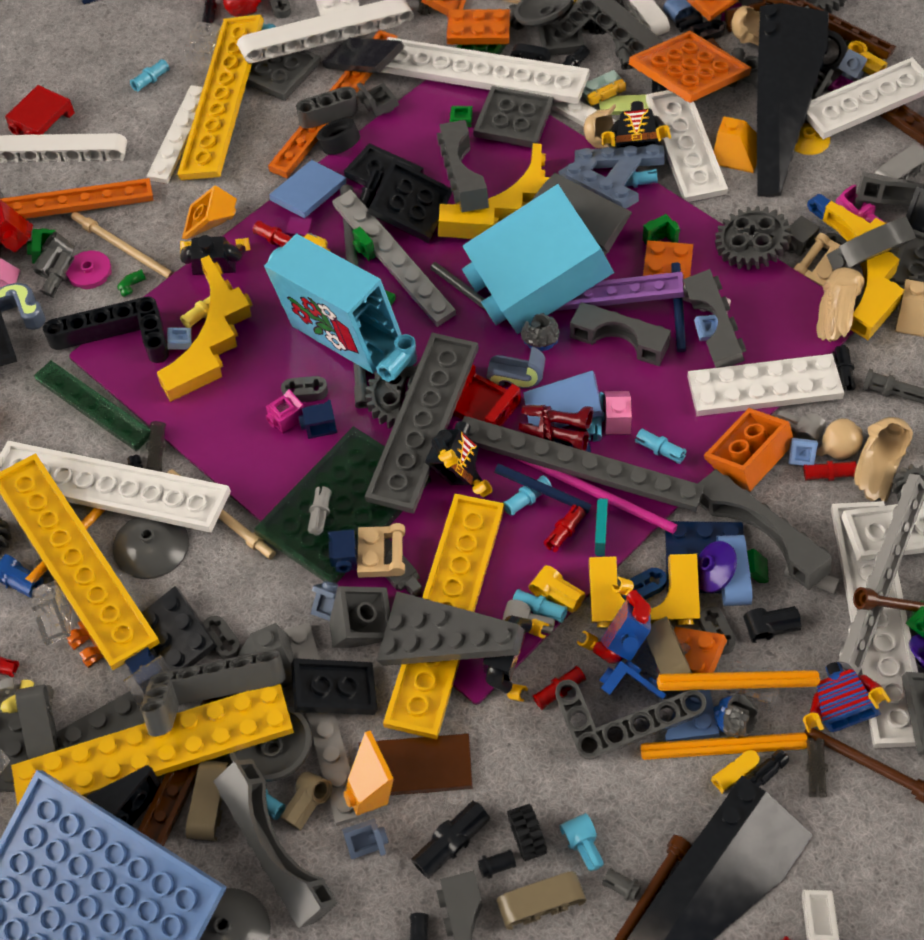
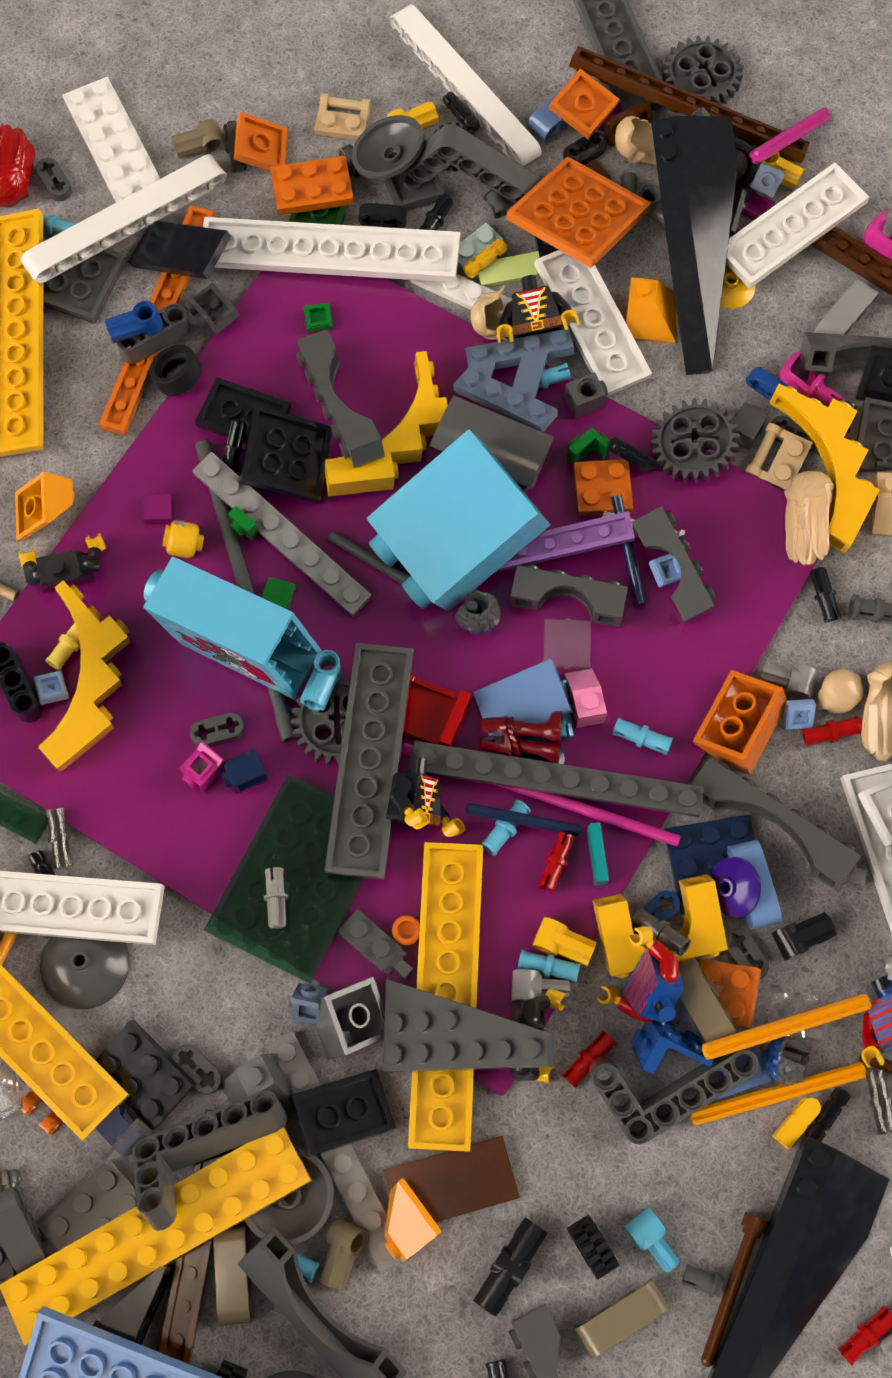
camera: 15 degrees left, 15 degrees up
(252, 540) = (202, 938): tan bar -> none
(273, 234) = (131, 525): red pin -> none
(307, 188) = (156, 452): medium blue tile -> none
(320, 91) = (134, 322): none -> blue piece
(343, 550) = (316, 946): dark blue window -> none
(365, 838) = (417, 1286): sand blue bracket -> none
(372, 551) = (348, 938): tan plate -> none
(422, 560) = (406, 930): none -> orange tile
(496, 863) = (565, 1284): black pin -> none
(513, 116) = (382, 311): dark grey plate -> none
(517, 371) = (461, 666): sand blue animal -> none
(613, 370) = (567, 643): none -> clear piece
(646, 590) = (661, 931): none -> dark grey pin
(667, 194) = (581, 404): none -> dark grey brick
(689, 21) = (562, 138): black pin -> none
(696, 239) = (632, 454): none -> black axle
(758, 566) = (777, 868): green tile -> none
(765, 384) = (742, 634): white plate -> none
(872, 243) = (836, 442): dark grey arch -> none
(878, 36) = (789, 136): none -> dark pink axle

